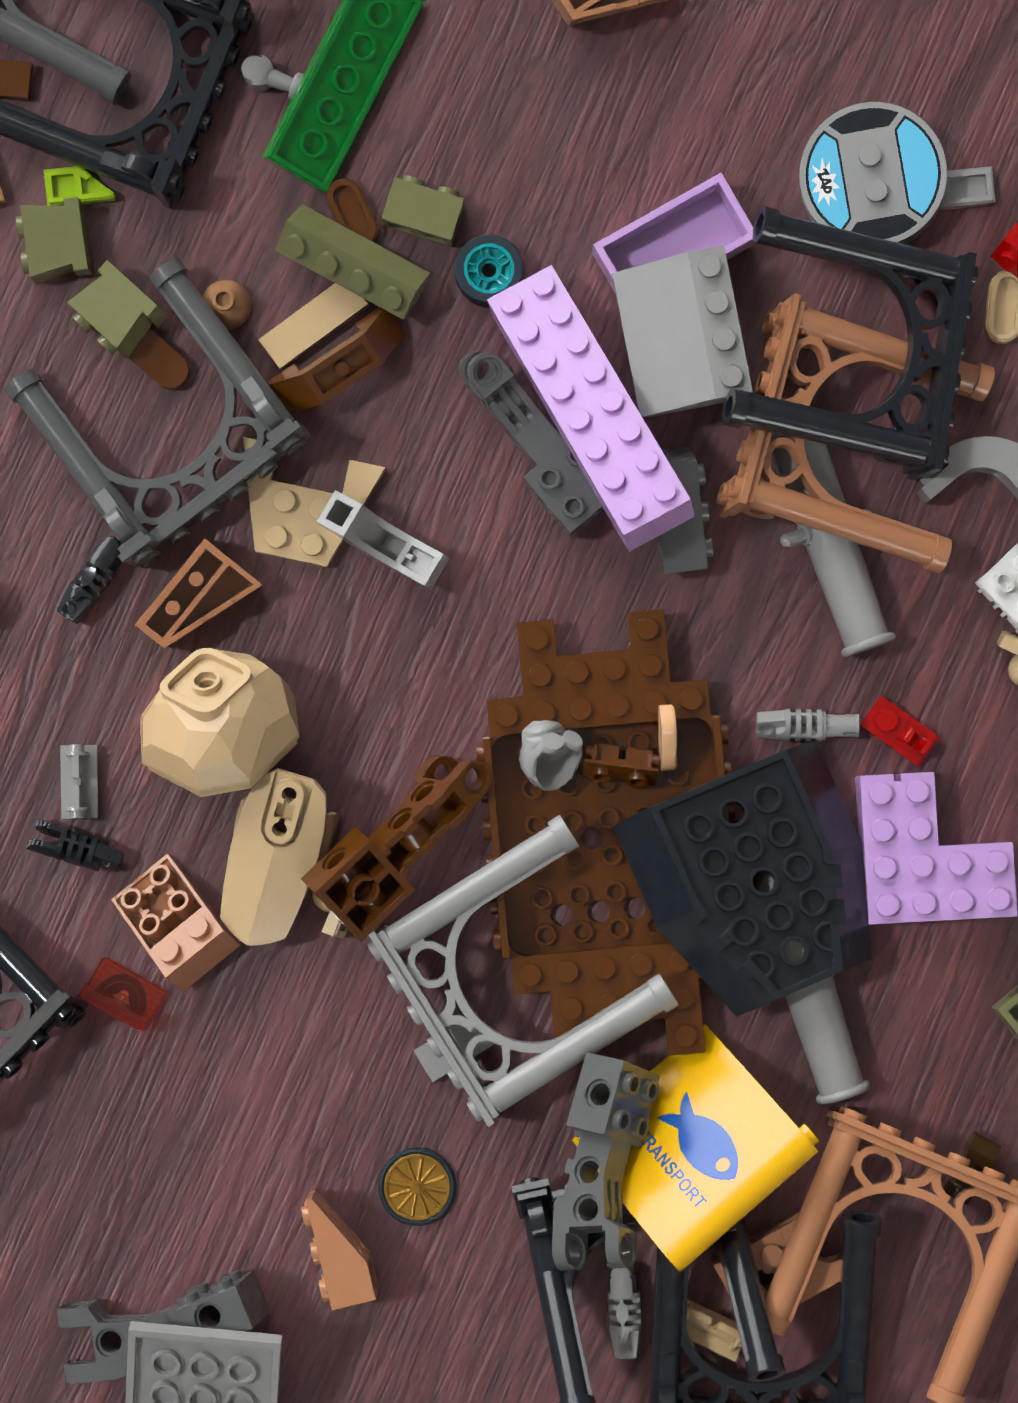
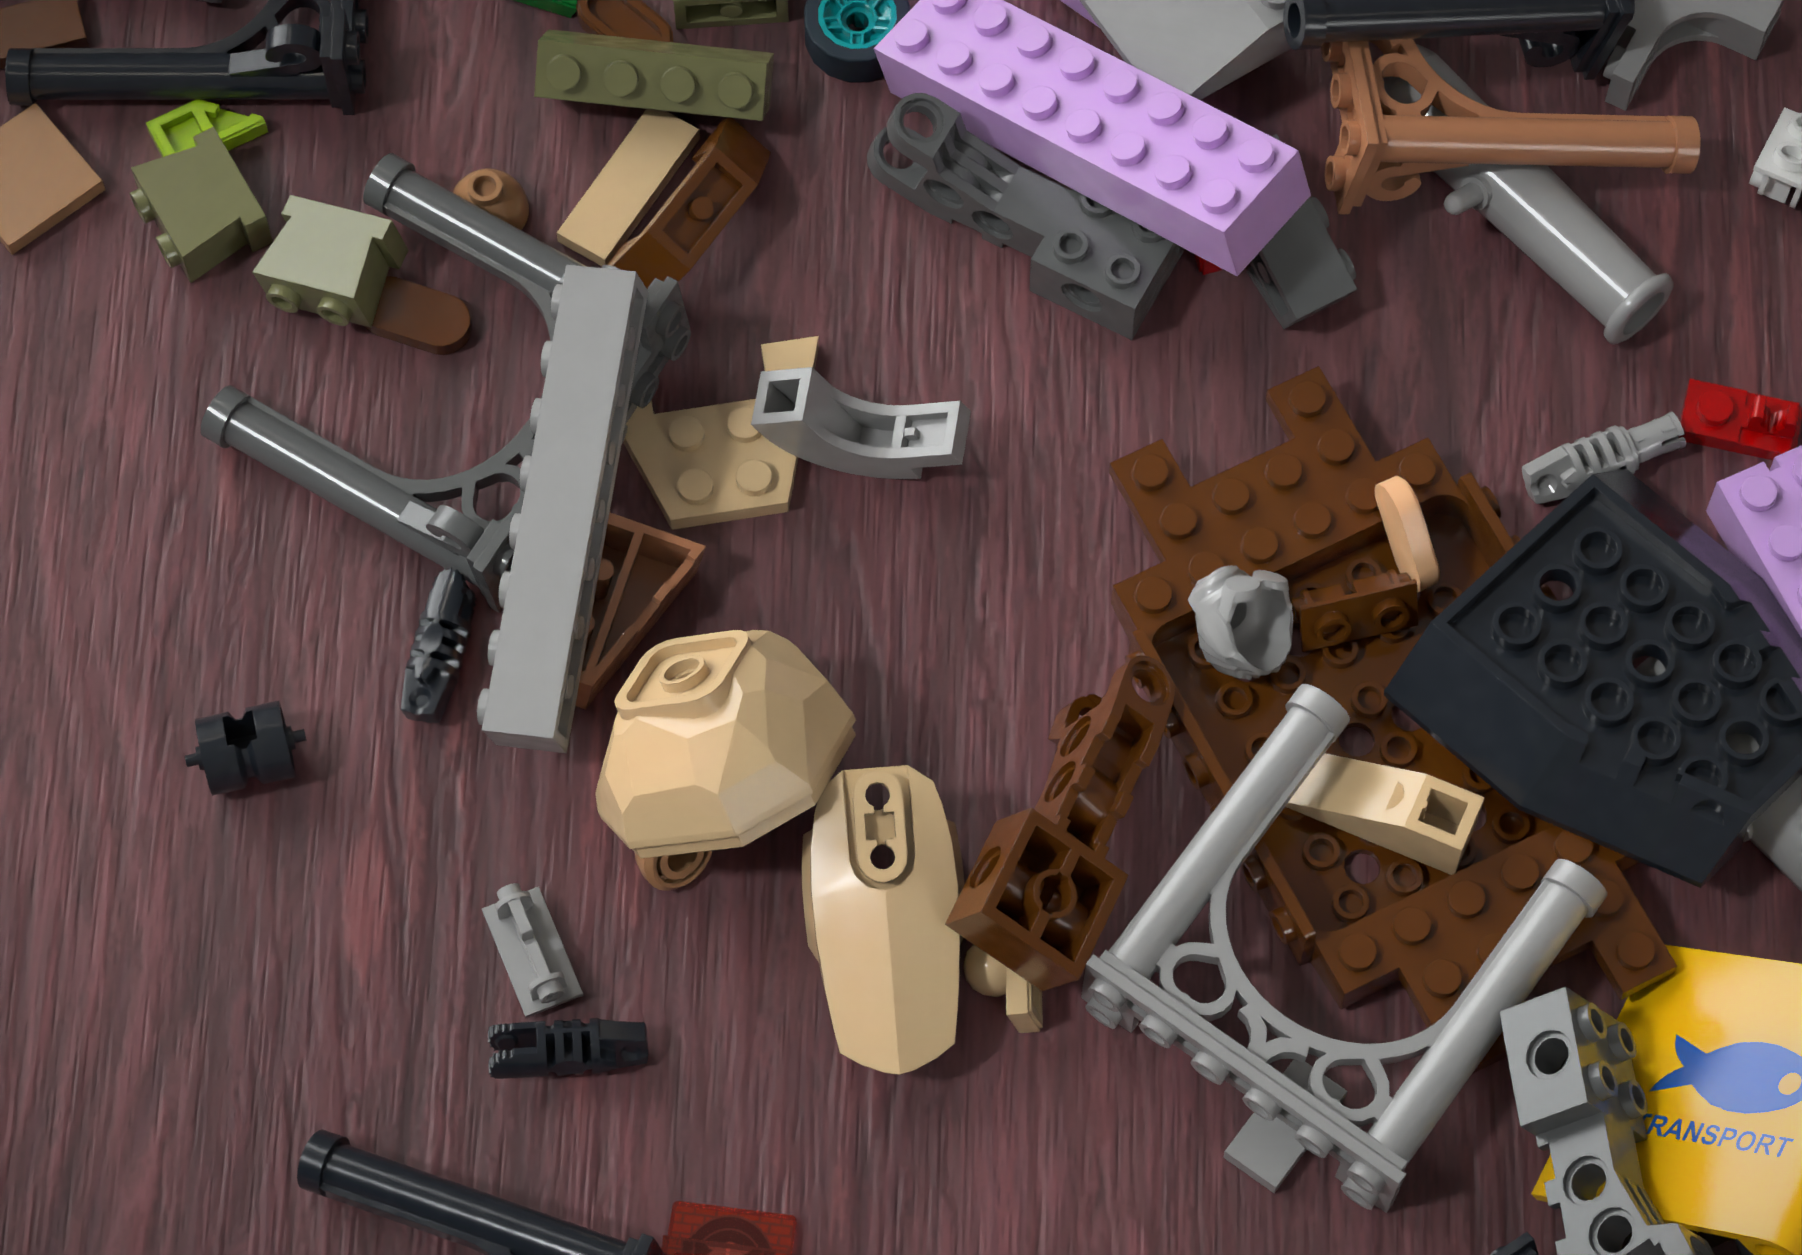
camera: 25 degrees left, 20 degrees down
(175, 923) = (771, 1101): nougat slope -> none
(182, 543) = (563, 509): none -> light grey brick
(586, 898) = (1392, 808): none -> tan slope

